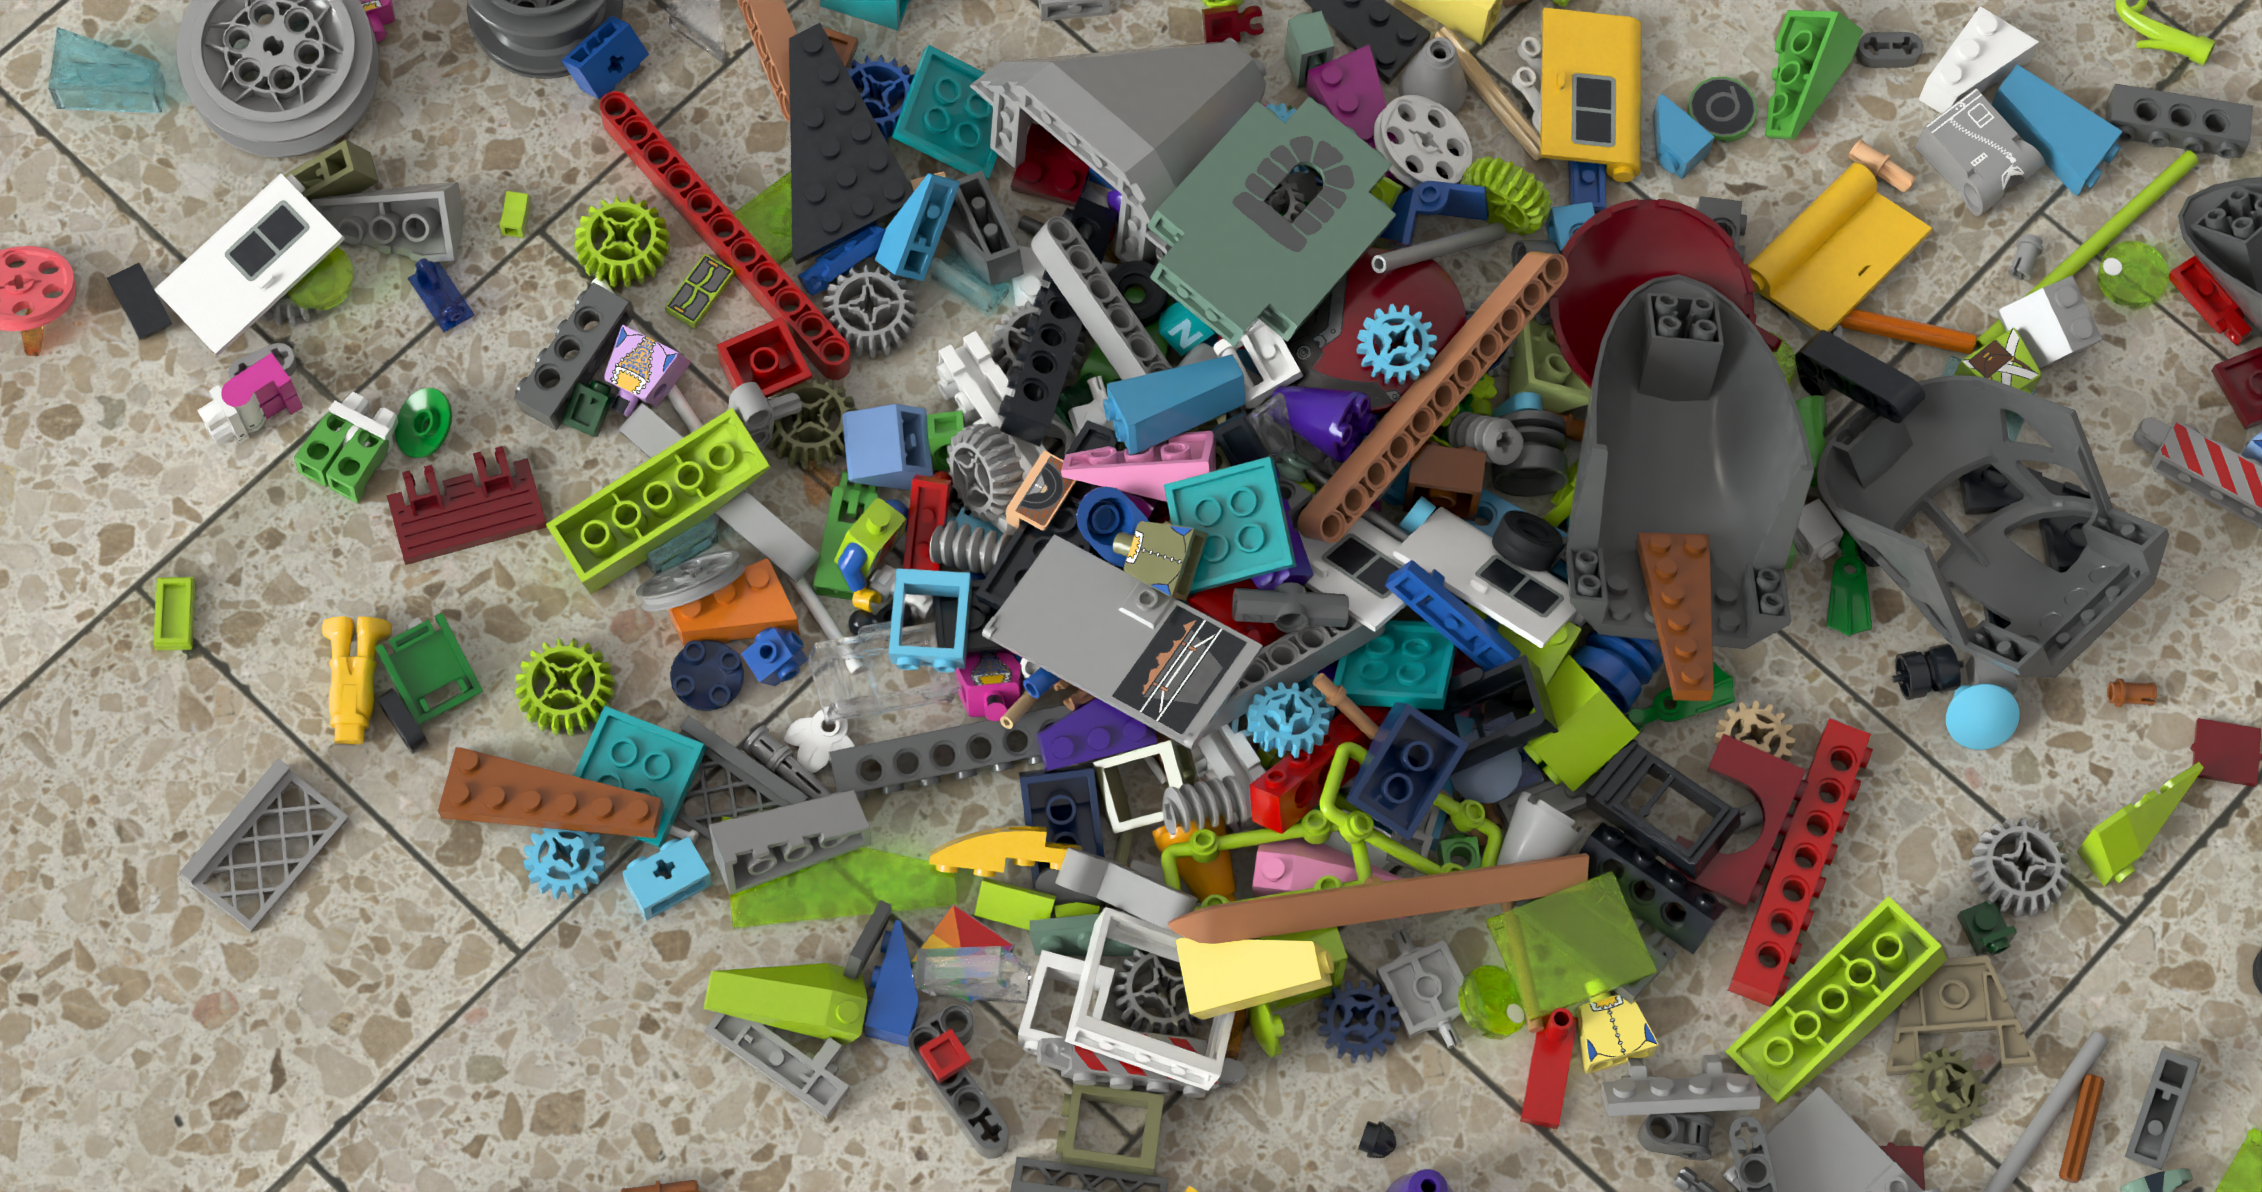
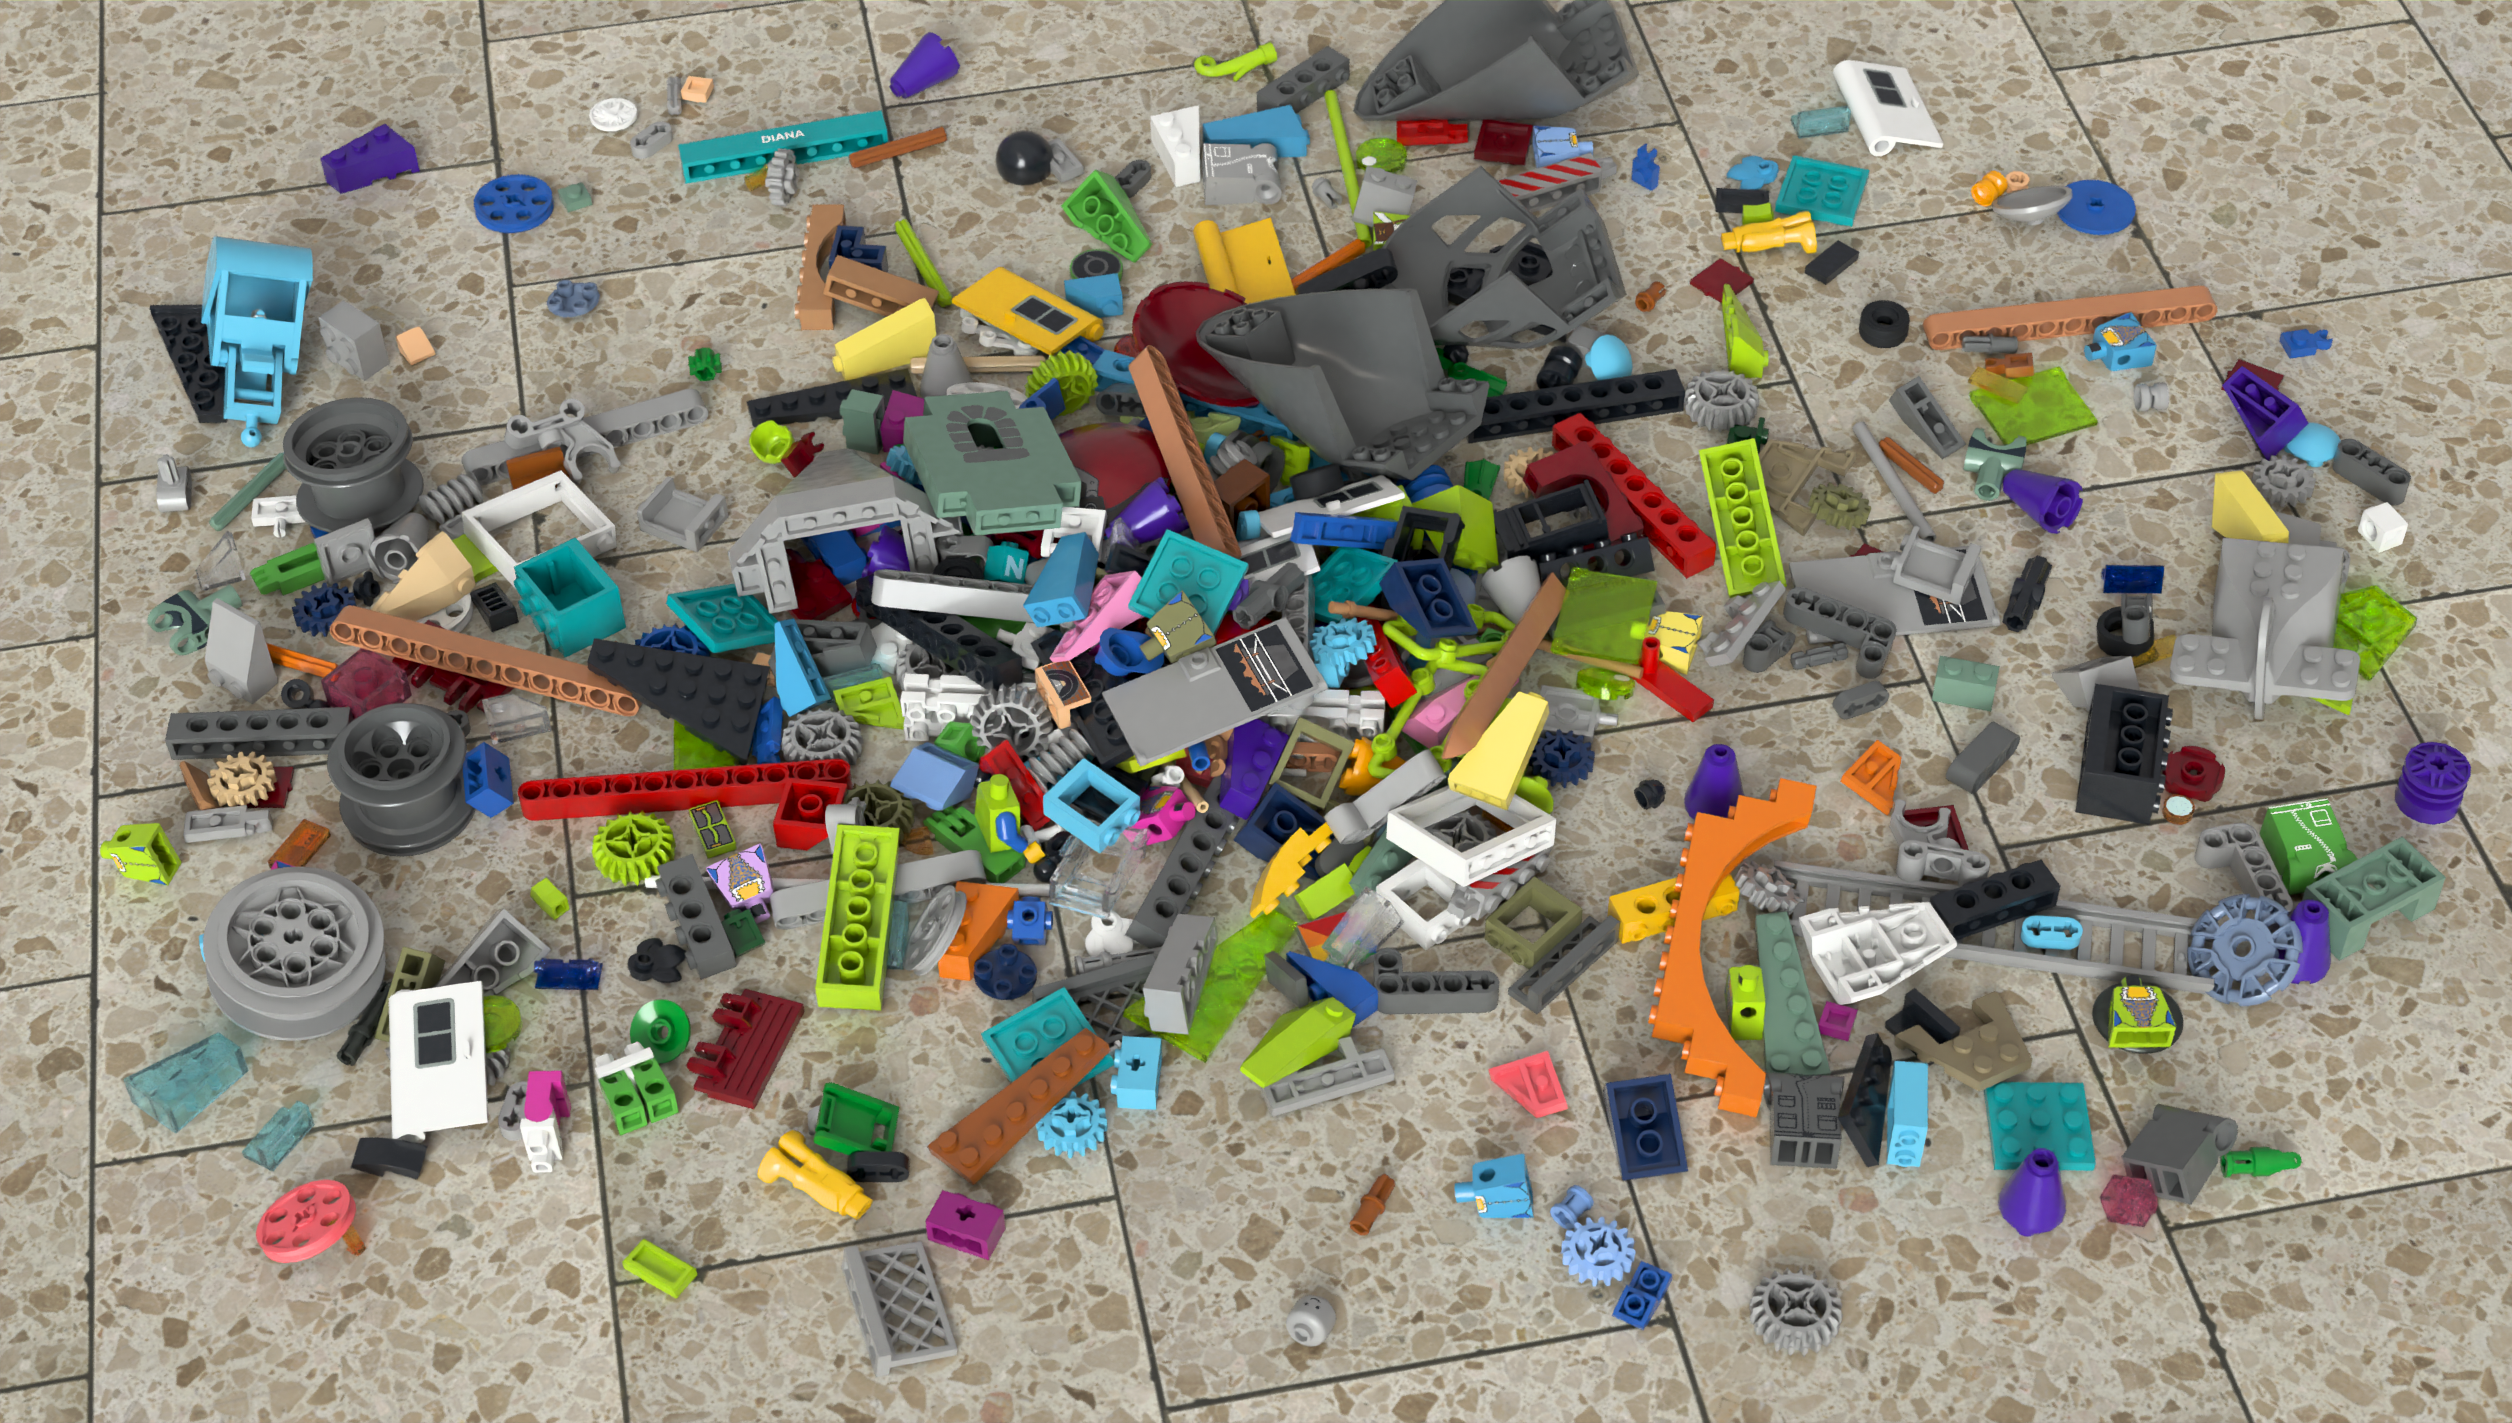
camera: 50 degrees left, 20 degrees down
(102, 194) = (279, 1136): none -> clear light blue panel
(261, 173) = (363, 1032): none -> pearl dark grey pin
(376, 825) = (965, 1224): none -> magenta brick
(514, 360) = (656, 961): none -> black plate
(583, 665) = (921, 1060): lime gear -> none
(945, 1055) = (1412, 971): red plate -> none
(952, 314) = (871, 703): none -> lime wing
(1203, 802) = (1360, 724): light grey piece -> none
(1407, 353) = (1135, 450): medium azure gear -> none
(1438, 247) = (1073, 420): light grey piece -> none
(1680, 599) = (1425, 428): dark orange wing -> none
(1881, 166) = (1221, 217): light nougat axle -> none
(1891, 735) = (1596, 400): none -> black brick

